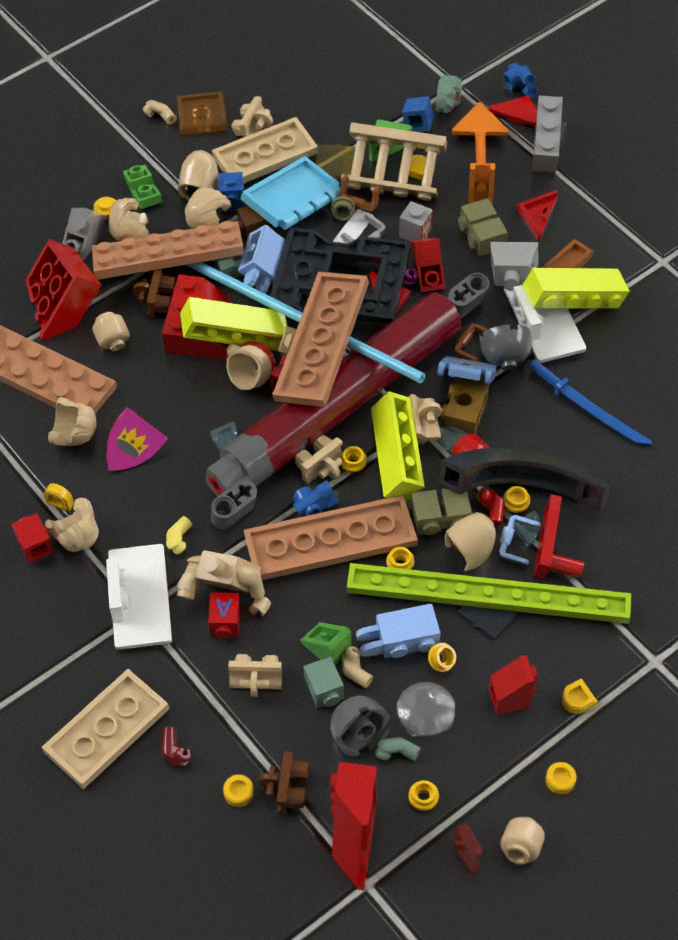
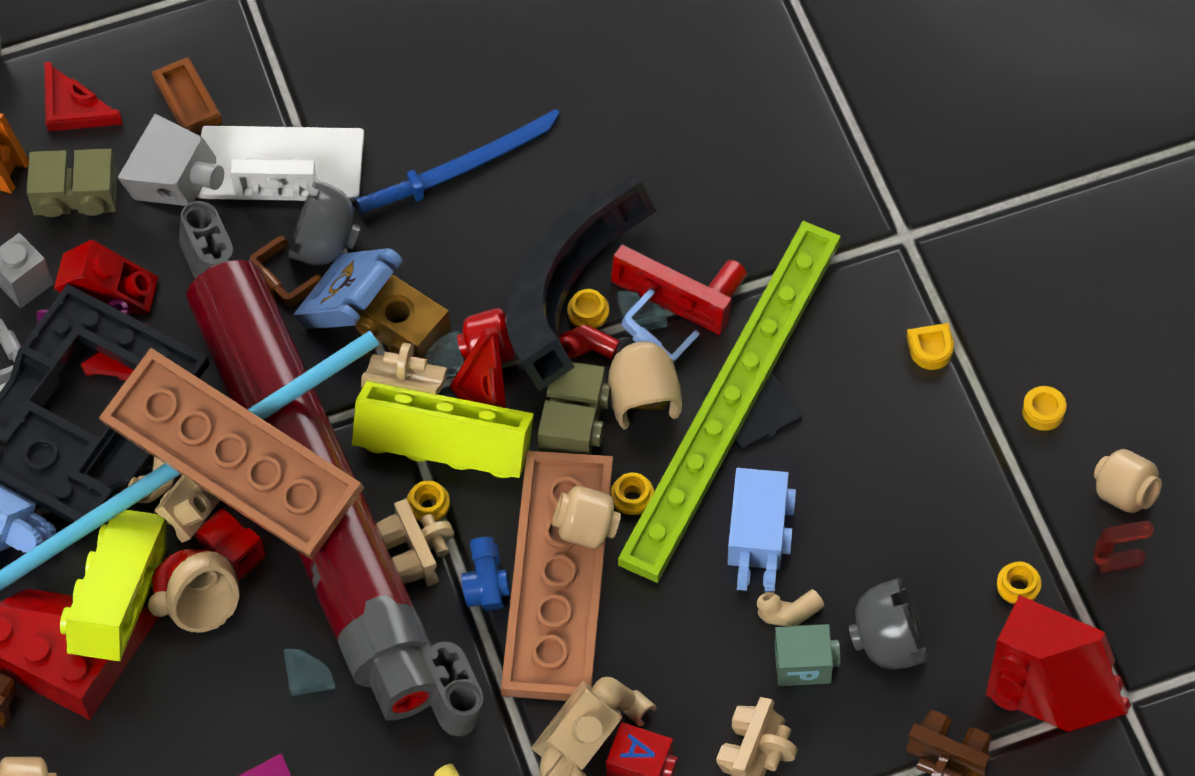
camera: 70 degrees left, 5 degrees up
(328, 641) = (737, 629): bright green slope -> none
(364, 532) = (586, 517): none -> tan head
(395, 745) = (931, 594): sand green arm -> none
(426, 709) = (886, 538): clear dish -> none
(434, 458) = (481, 373): none -> red tile
(448, 657) = (815, 488): yellow plate -> none
(513, 686) = (902, 409): red slope -> none
(575, 288) = (267, 97): neon yellow brick -> none

